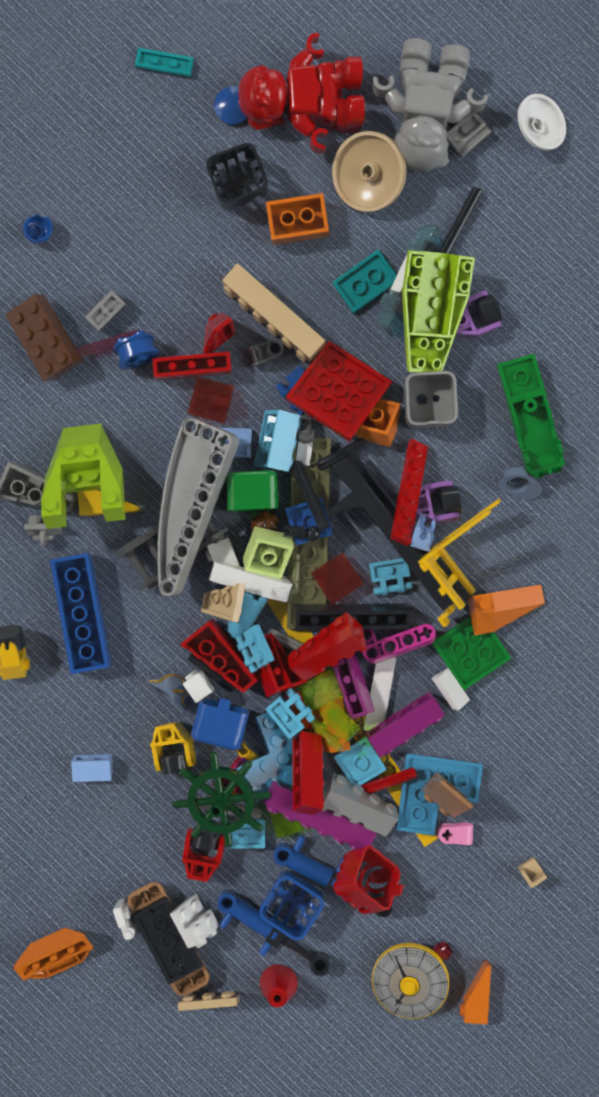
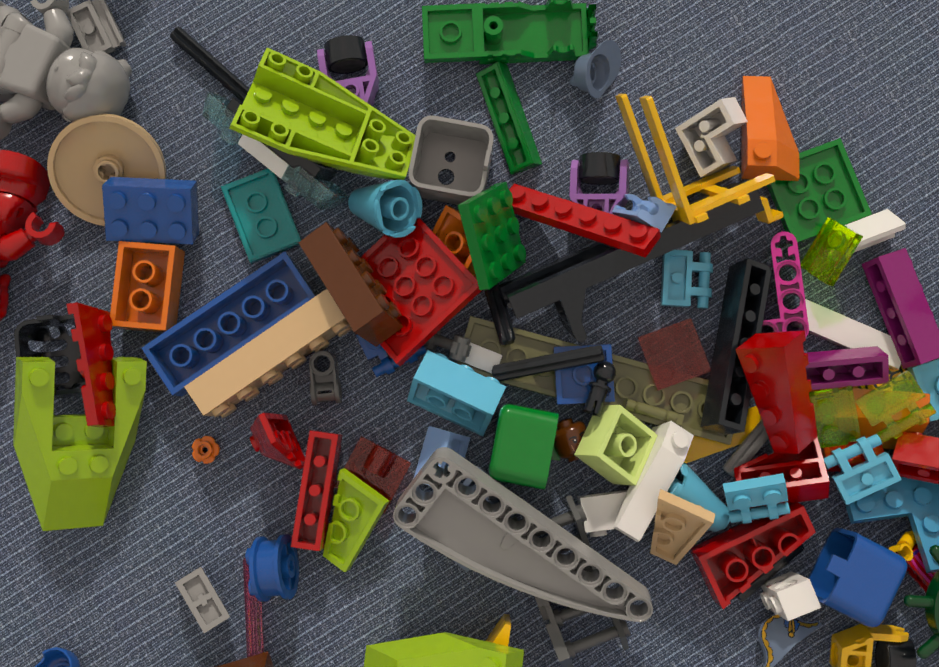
camera: 70 degrees left, 5 degrees down
(175, 204) = (65, 463): none -> lime wedge
(179, 394) = (353, 519): none -> lime wing
(205, 285) = (208, 442): none -> orange plate
(256, 195) = (95, 363): none -> red wing
(286, 280) = (228, 323): none -> blue brick
(330, 354) = (351, 284): none -> reddish brown piece
(349, 208) = (150, 210): none -> blue brick
(385, 438) = (492, 235): none -> green plate
(388, 365) = (388, 207): none -> medium azure cone
(430, 666) = (830, 251): none -> clear neon green plate
(473, 432) = (508, 118): none -> green slope
(488, 567) = (706, 133): none -> white brick

